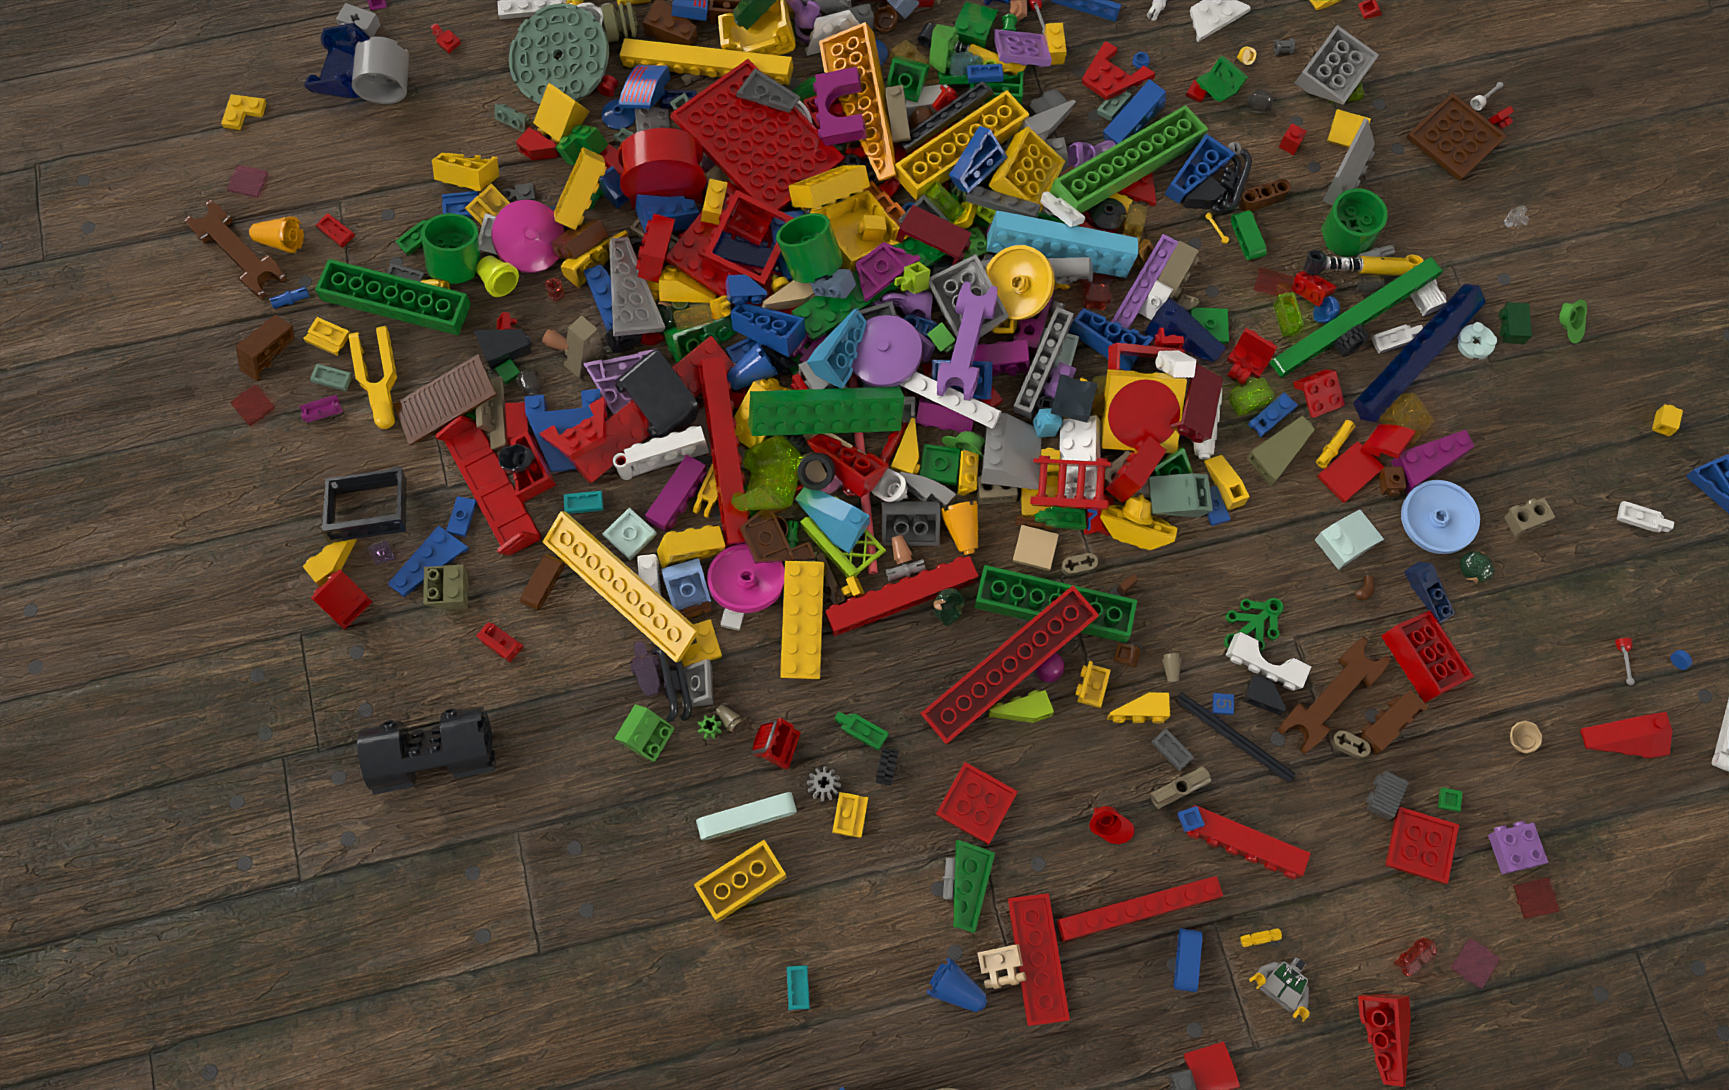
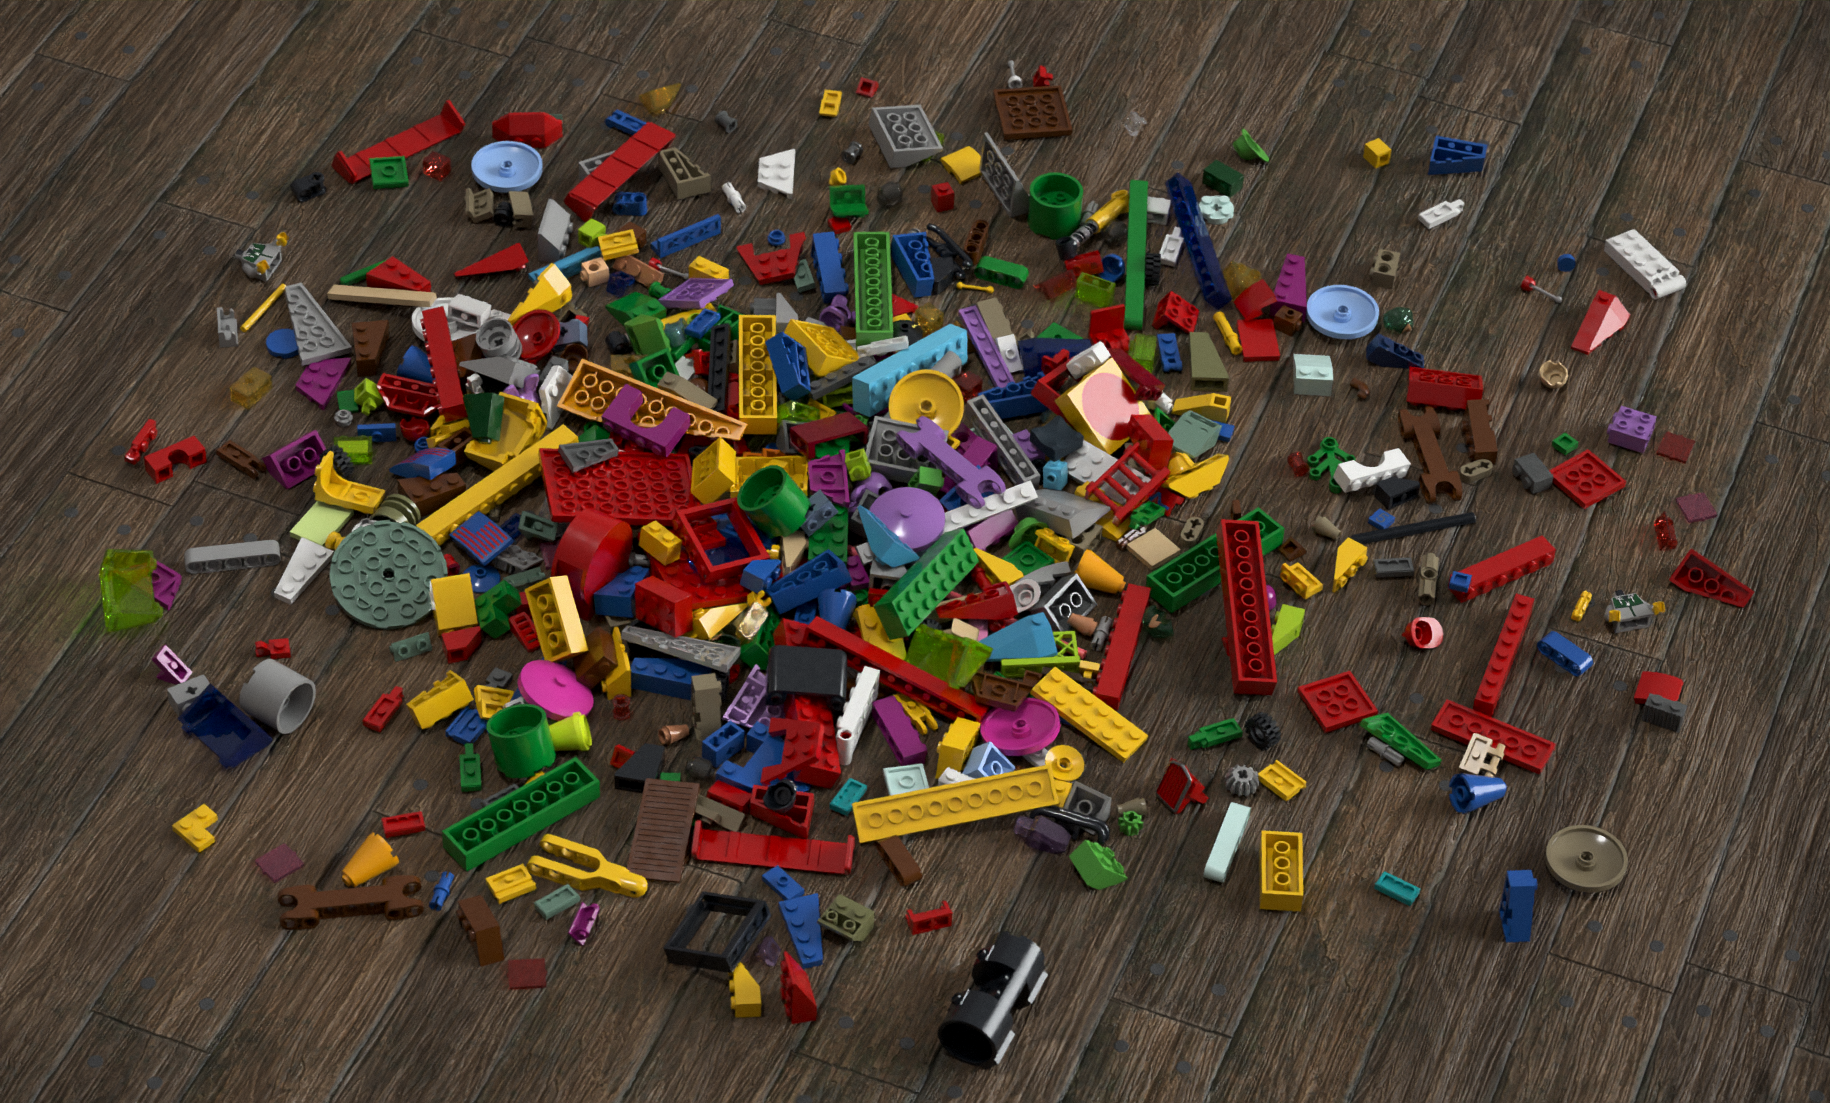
camera: 55 degrees left, 25 degrees down
(436, 143) = (383, 709): none -> red hinge
(564, 381) = (723, 743): none -> blue brick
(726, 633) = (1069, 758): none -> yellow dish
(805, 481) = (983, 615): black tyre -> none
(1228, 596) = (1299, 466): none -> clear red bush

